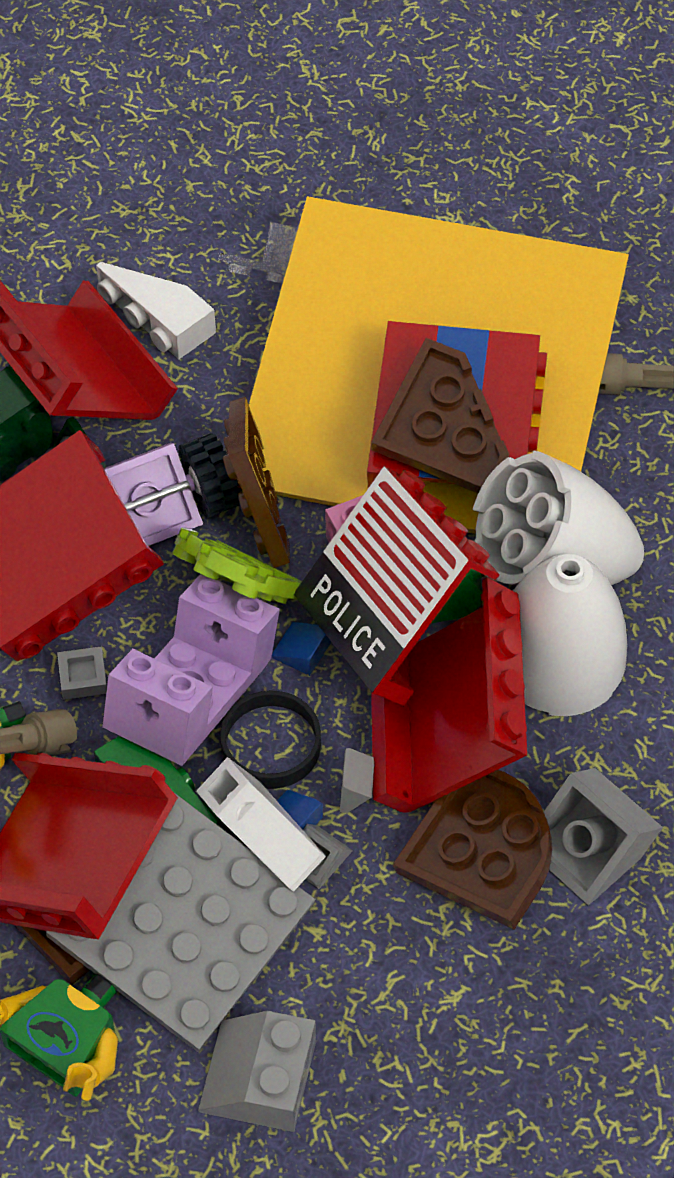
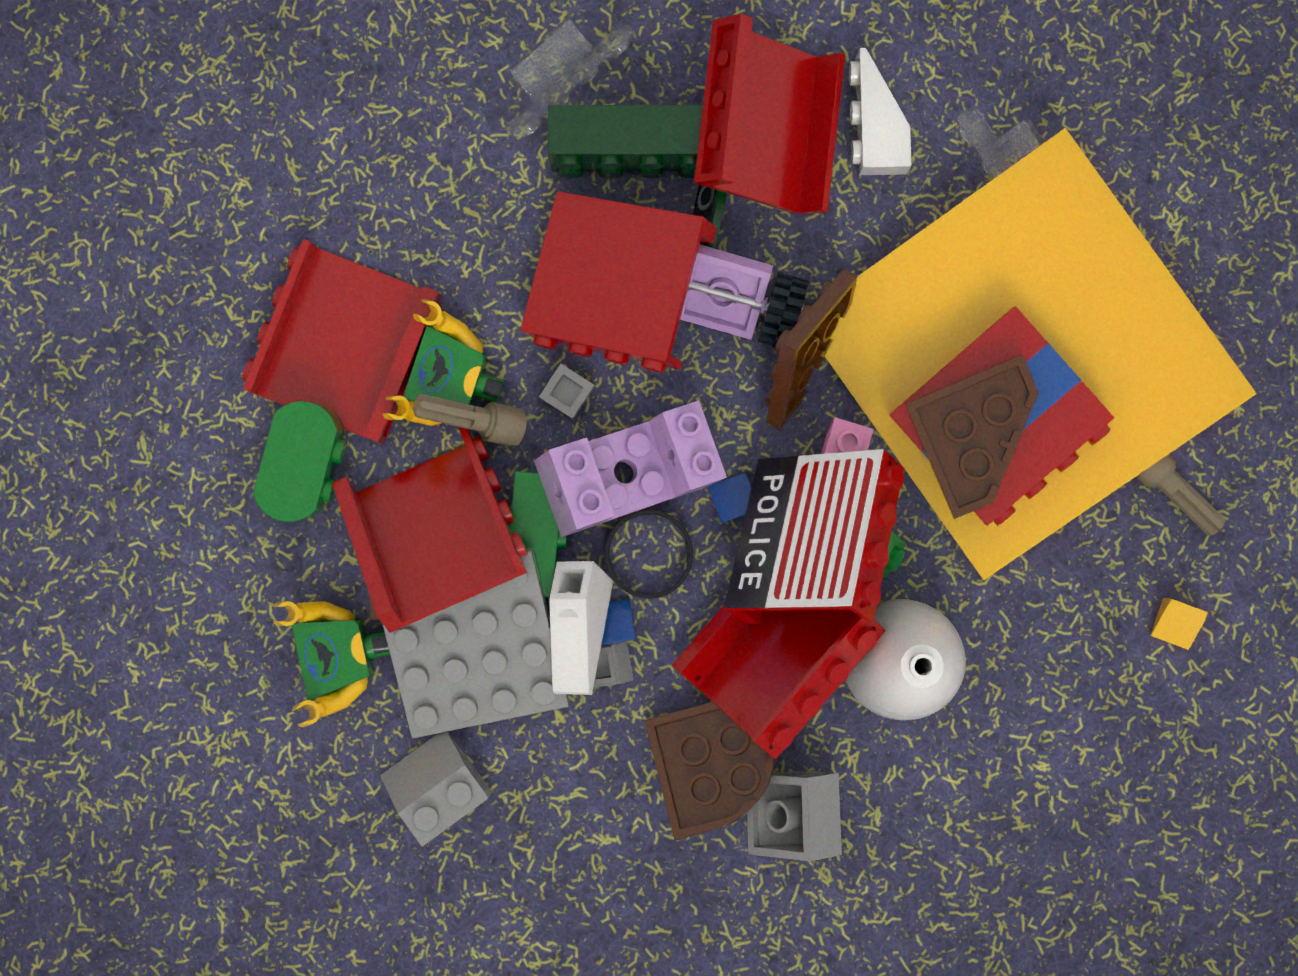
camera: 40 degrees right, 30 degrees up
(248, 574) = (731, 410): lime plate -> none
(356, 779) = (673, 641): light grey slope -> none
(550, 509) = (968, 581): white cylinder -> none

